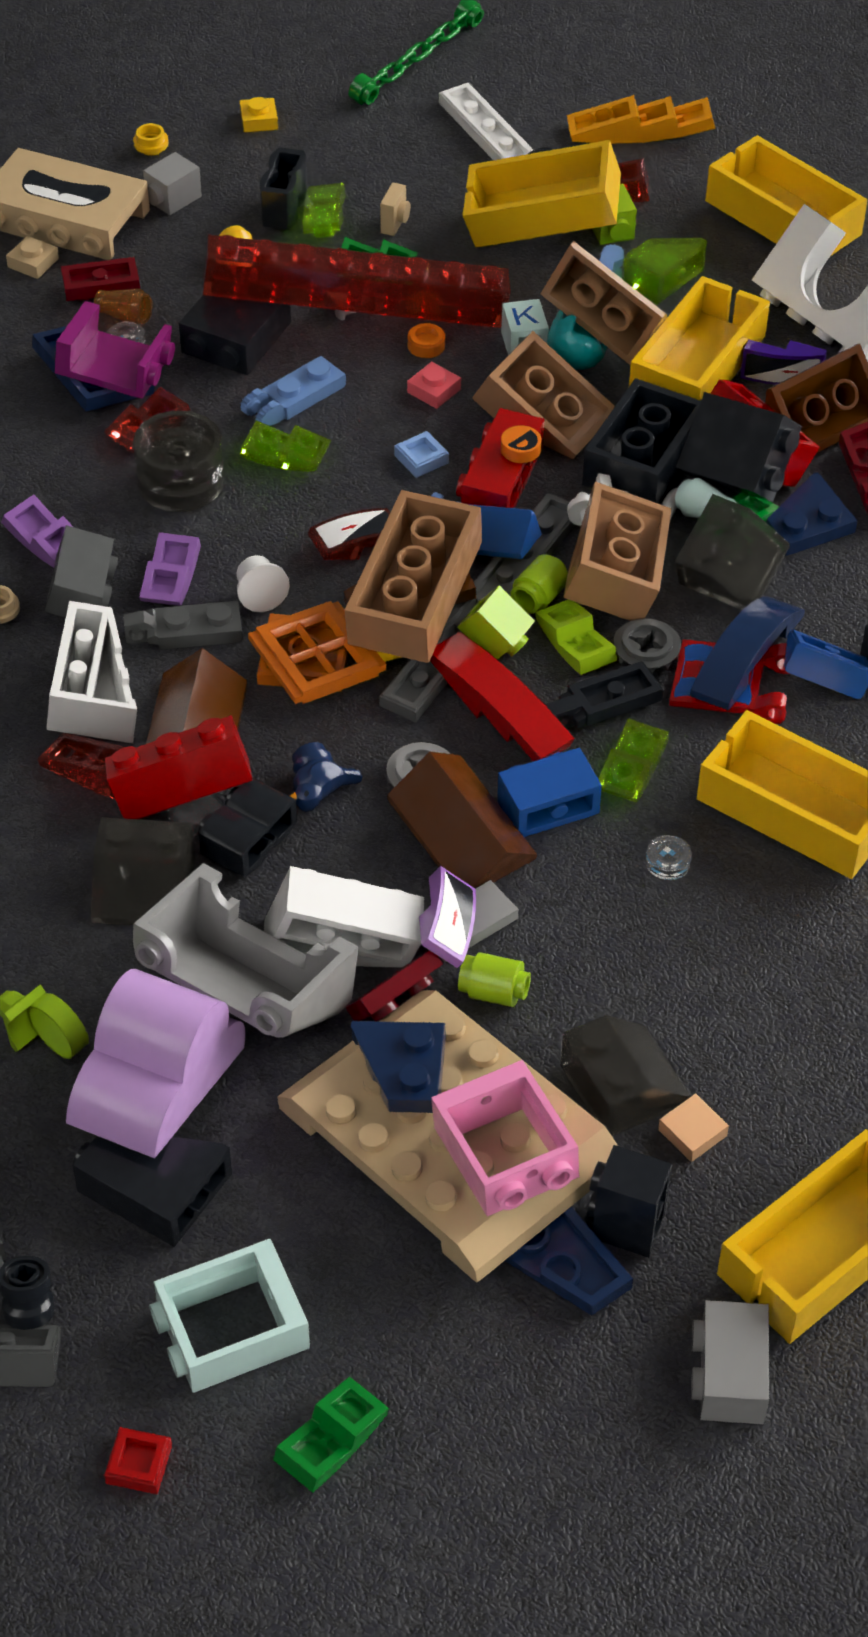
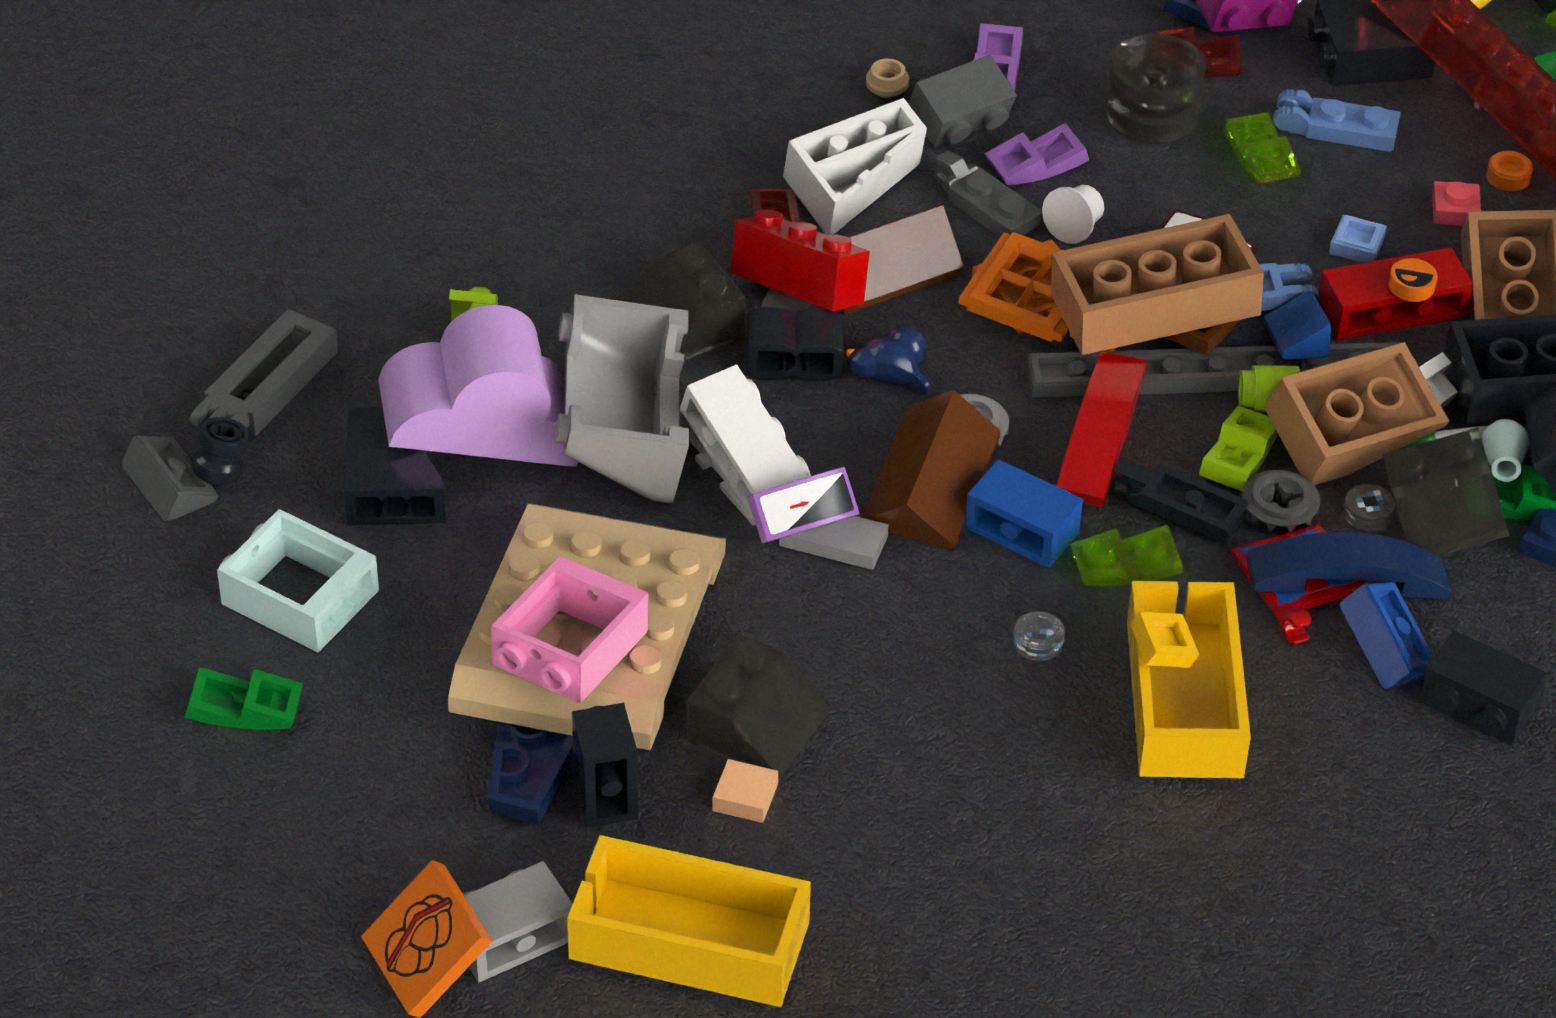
camera: 55 degrees right, 5 degrees down
(138, 1460) = (134, 600): red tile -> none
(380, 999) = (693, 514): dark red plate -> none
(403, 1061) = (616, 540): dark blue wing -> none
(494, 979) = (779, 577): lime brick -> none
(497, 624) = (1182, 380): lime brick -> none
(689, 604) = (1369, 507): none -> clear tile
(725, 1432) = (426, 939): none -> orange tile
(785, 778) = (1164, 639): none -> yellow plate

